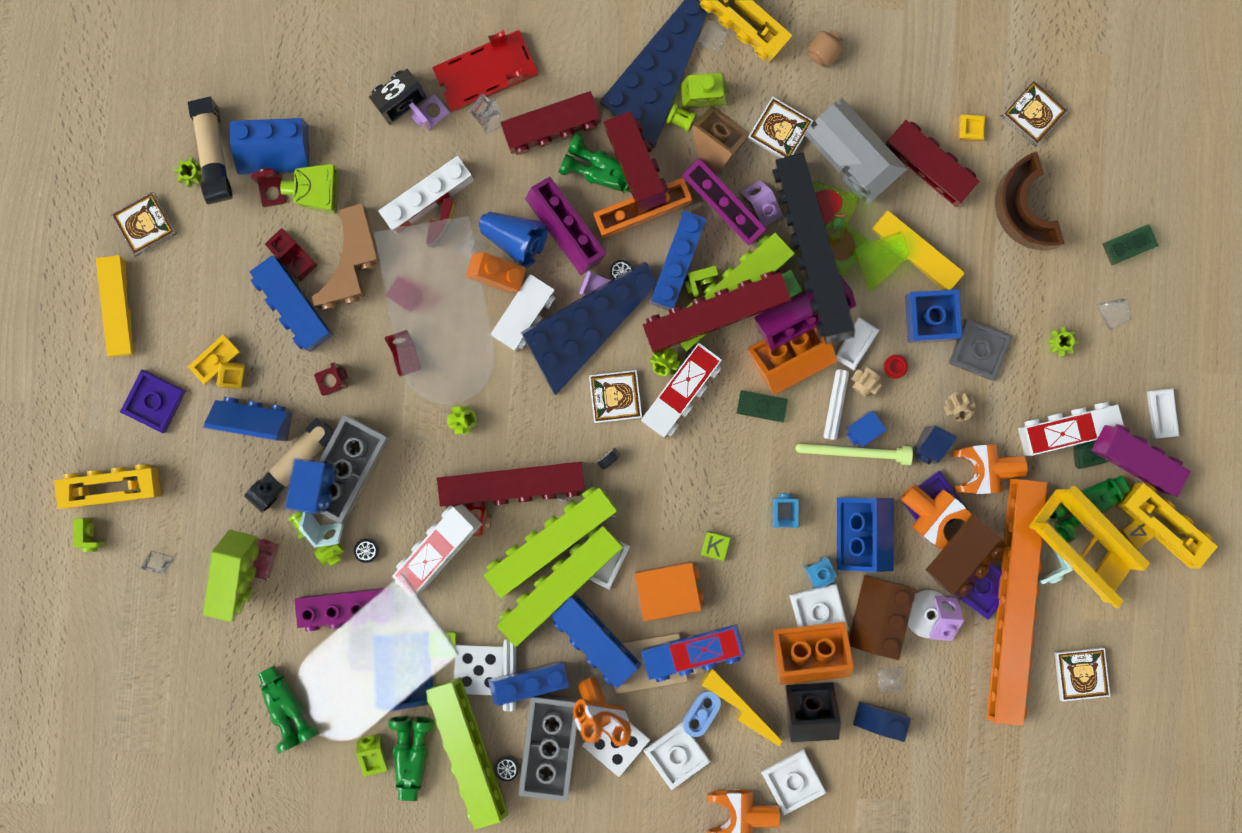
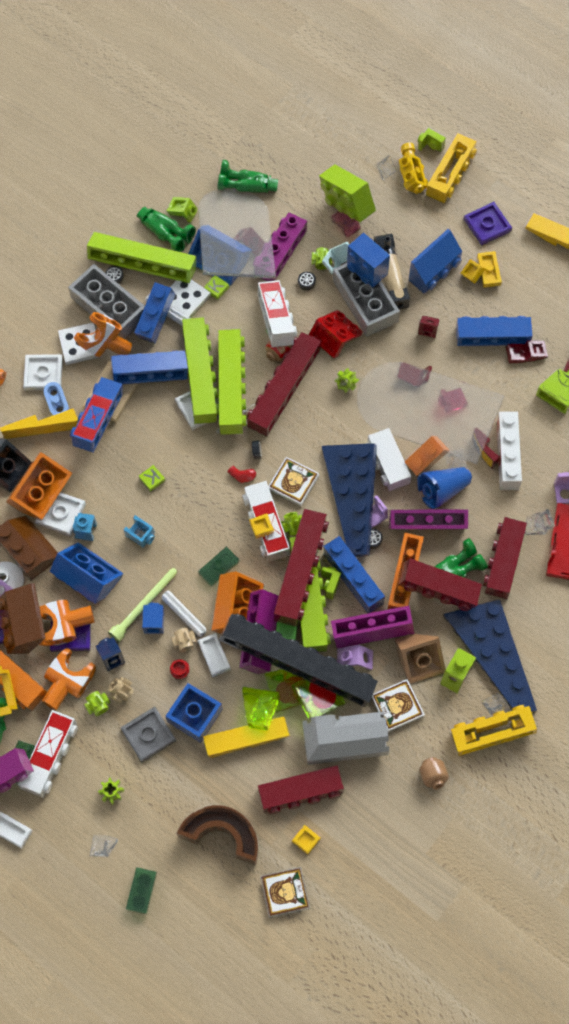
camera: 125 degrees right, 20 degrees down
(148, 527) = (412, 169): none -> yellow brick
(357, 252) = (486, 372): medium nougat arch -> none
(410, 473) = (334, 332): none -> red bracket
(646, 452) = (242, 476): none -> red arm
(669, 591) = (146, 430): orange brick -> none
(681, 118) = (458, 642): lime bush -> none
(696, 387) = (261, 526): none -> yellow tile
(989, 419) = (97, 703): none -> lime gear

